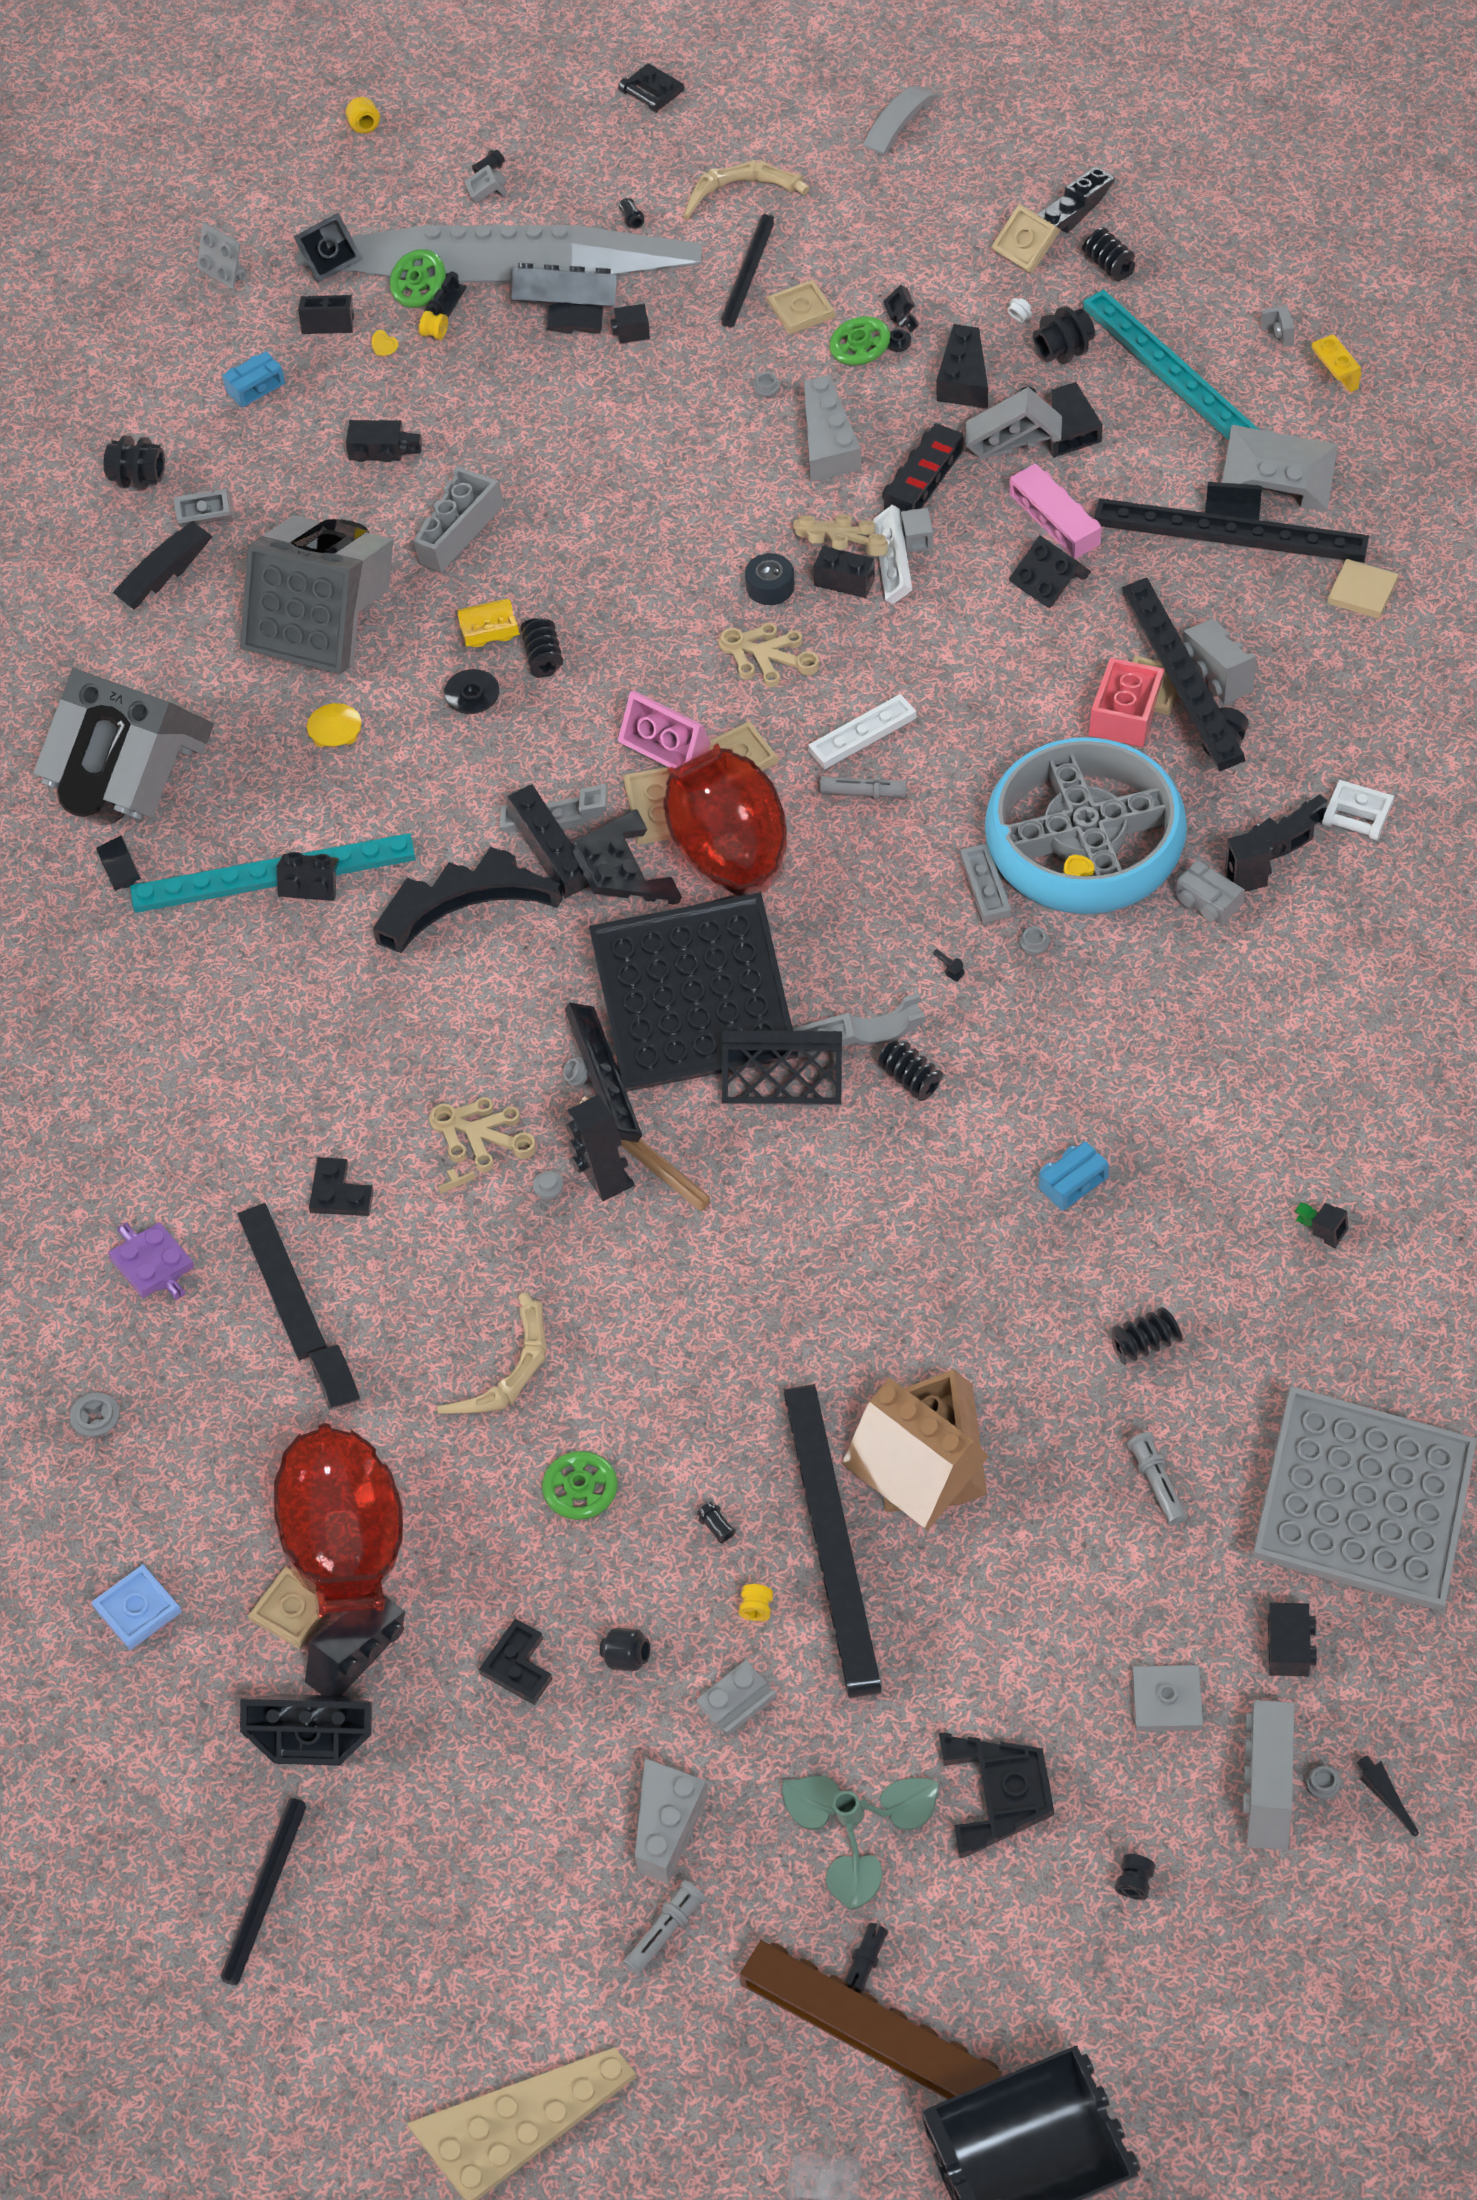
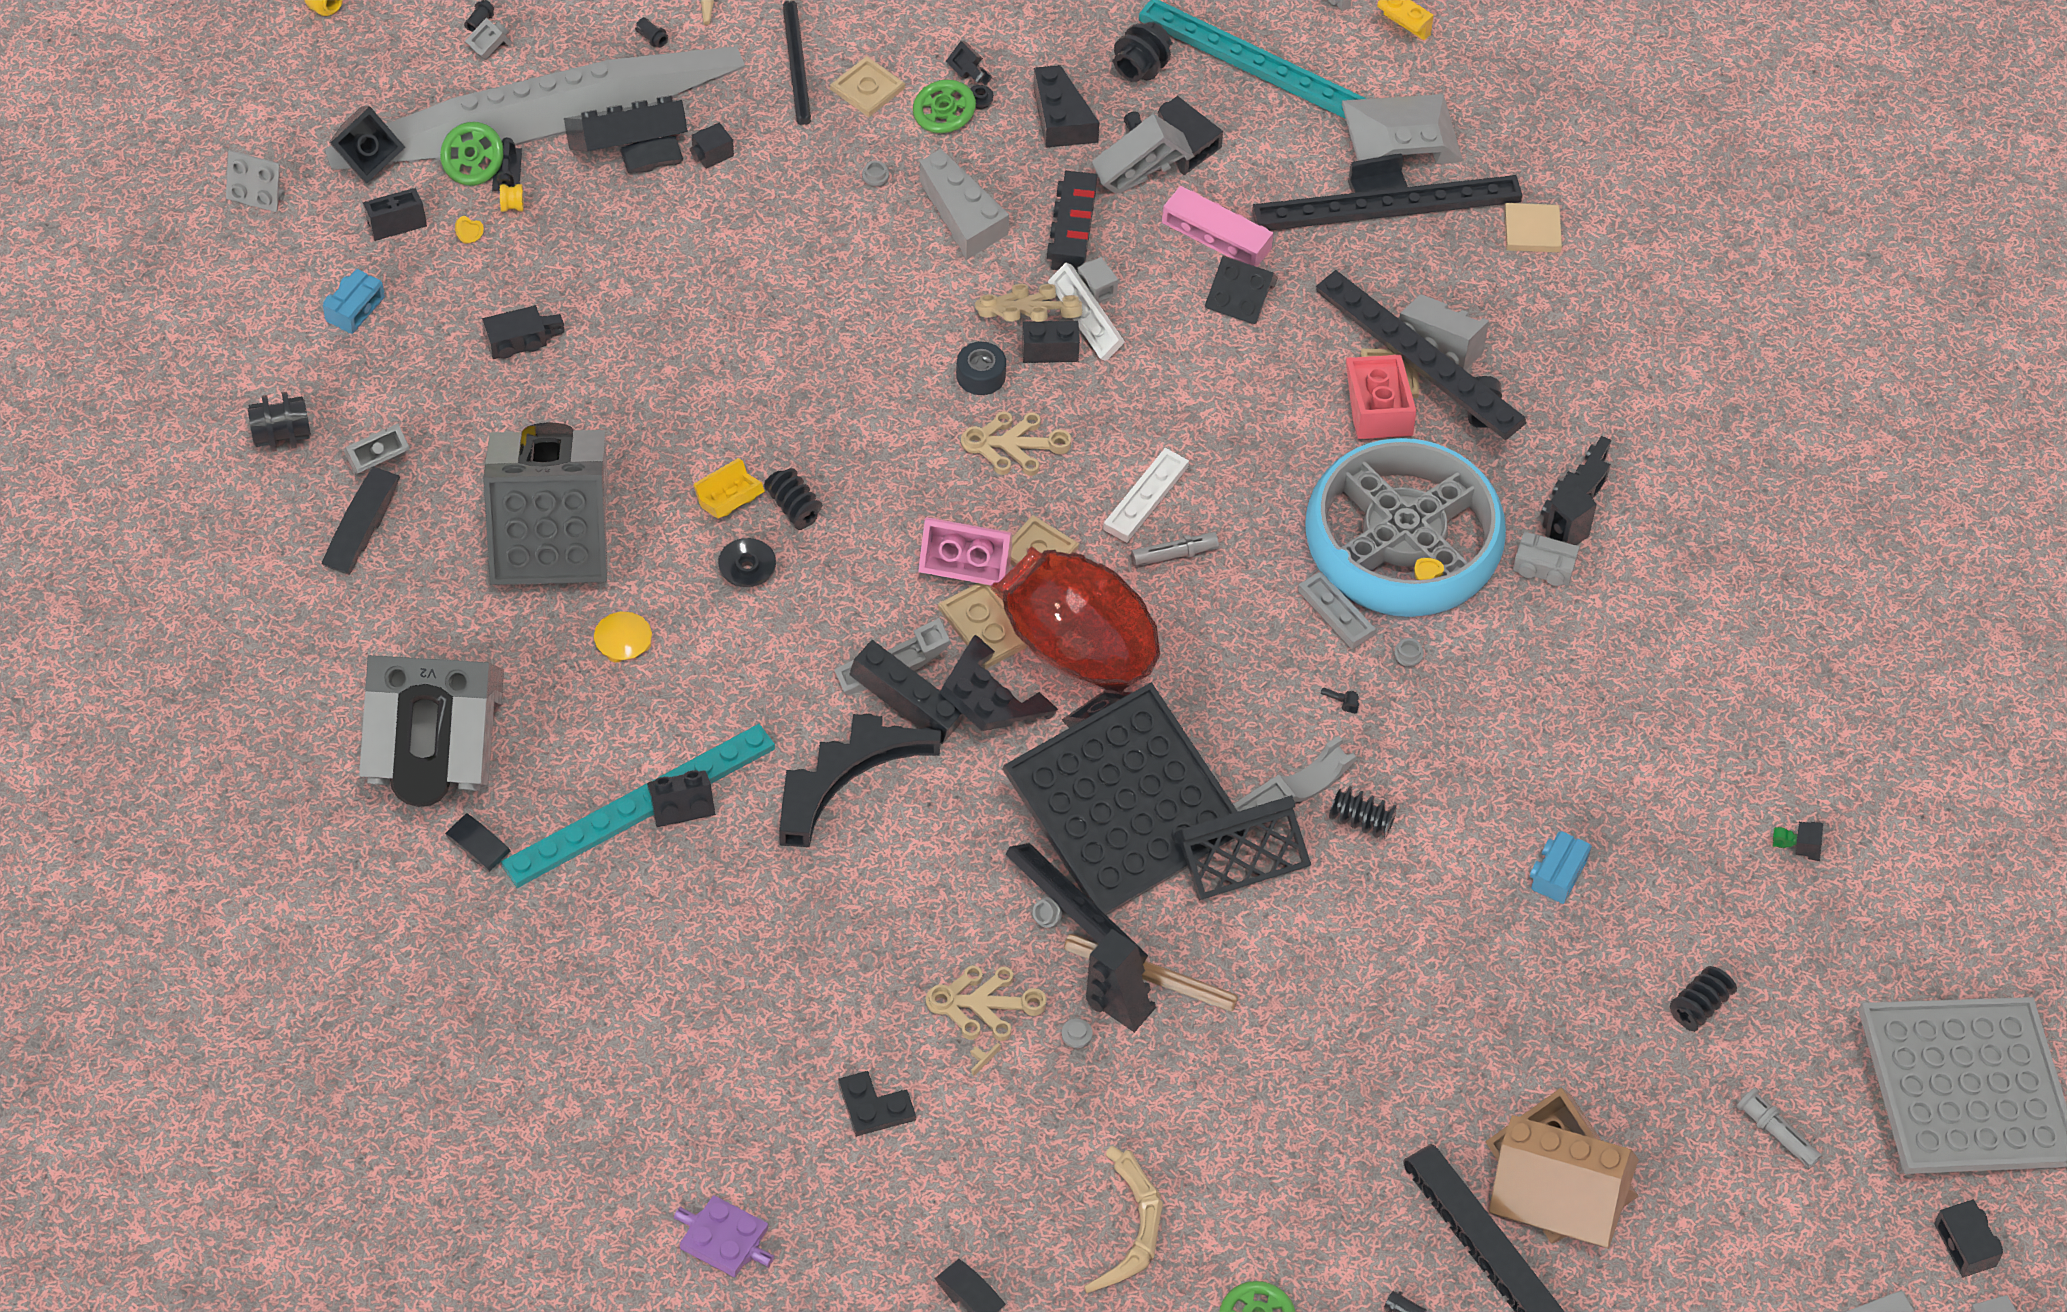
camera: 30 degrees left, 0 degrees up
(281, 1281) = (866, 1214): black tile -> none
(457, 518) = (643, 385): light grey wedge -> none
(1019, 309) = (1082, 37): white plate -> none
(1358, 802) = (1636, 433): white plate -> none

